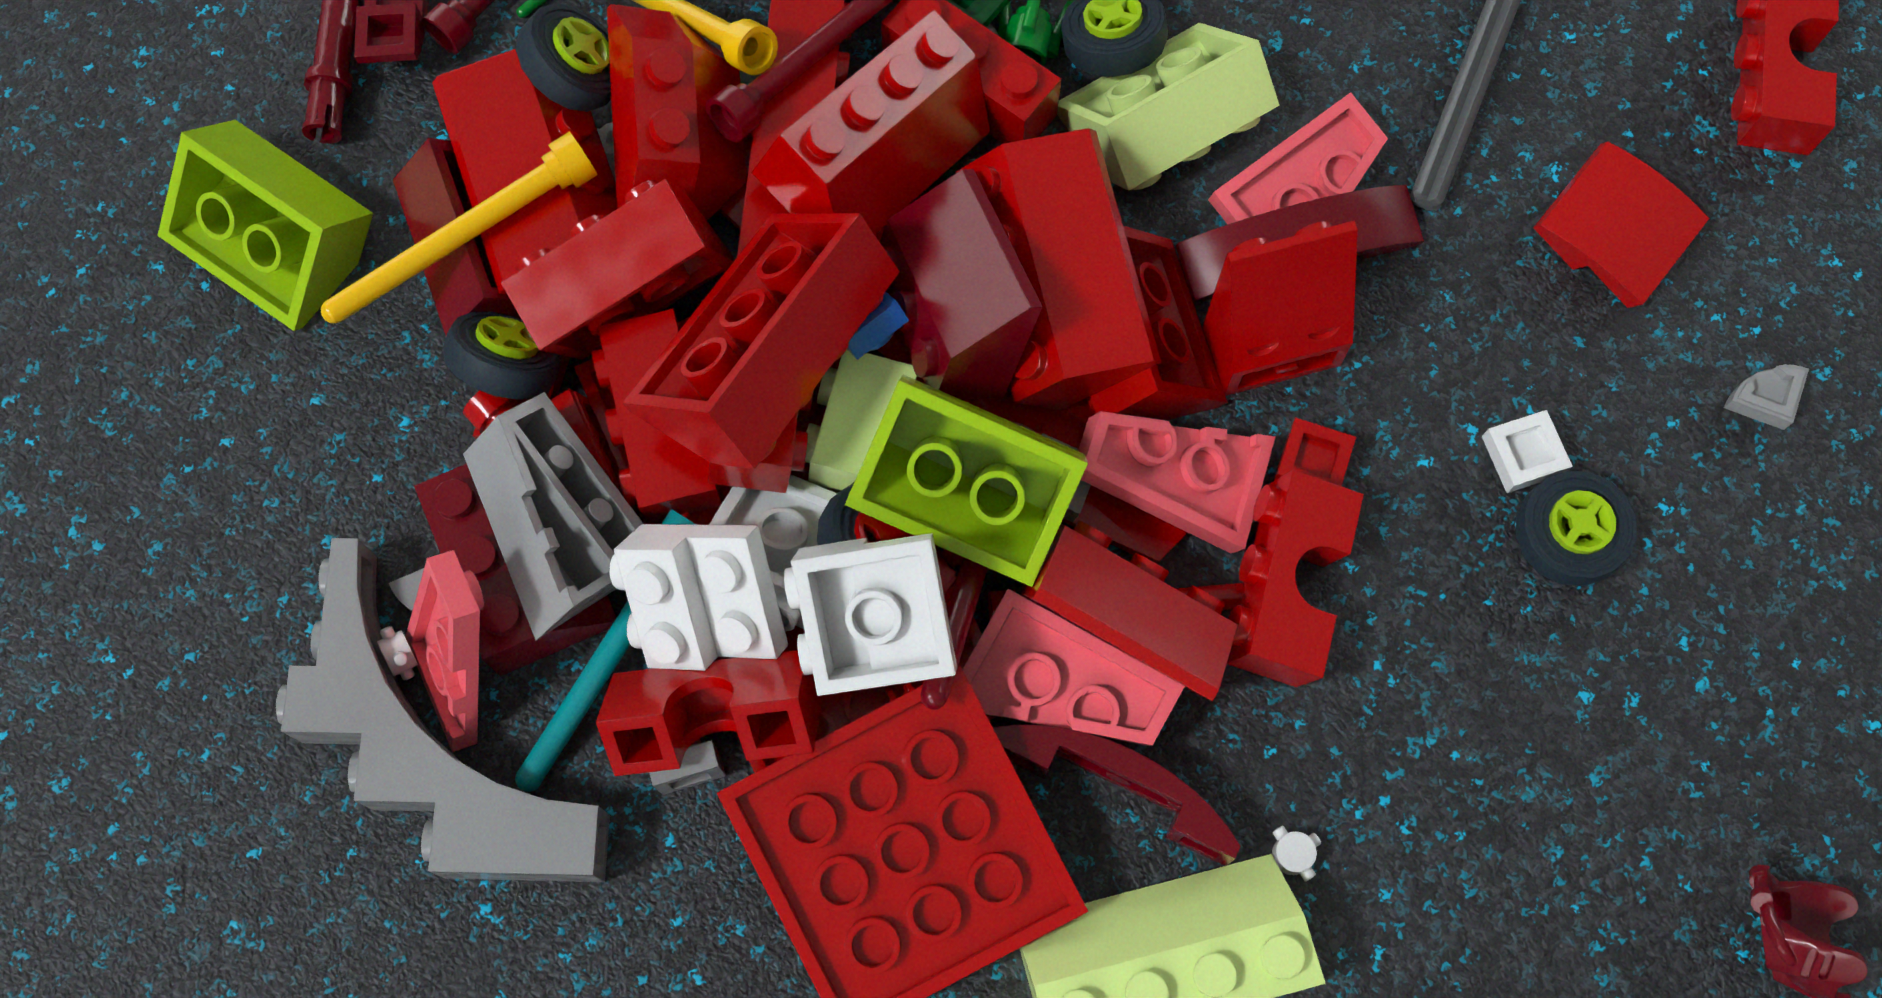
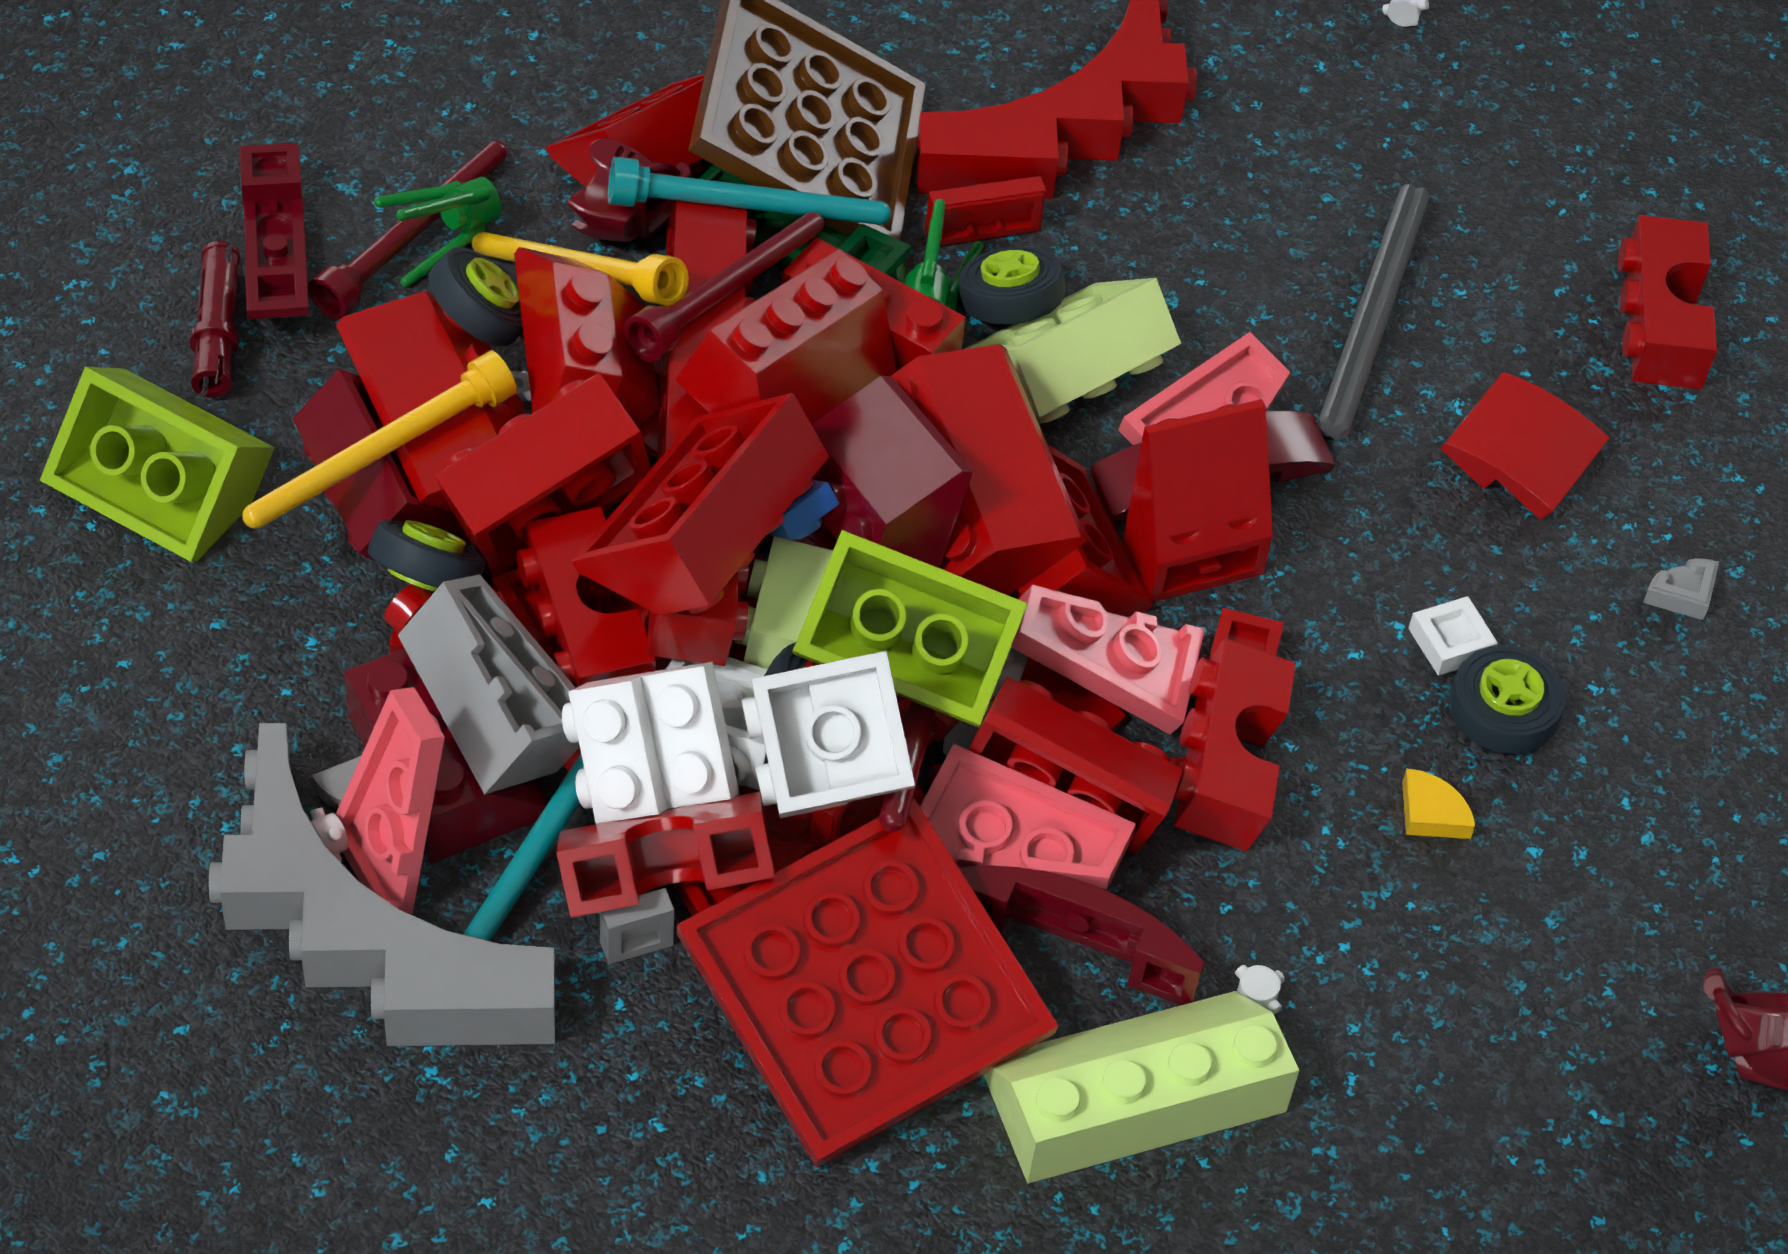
camera: 10 degrees left, 20 degrees down
(1489, 648) = (1434, 807): none -> yellow tile

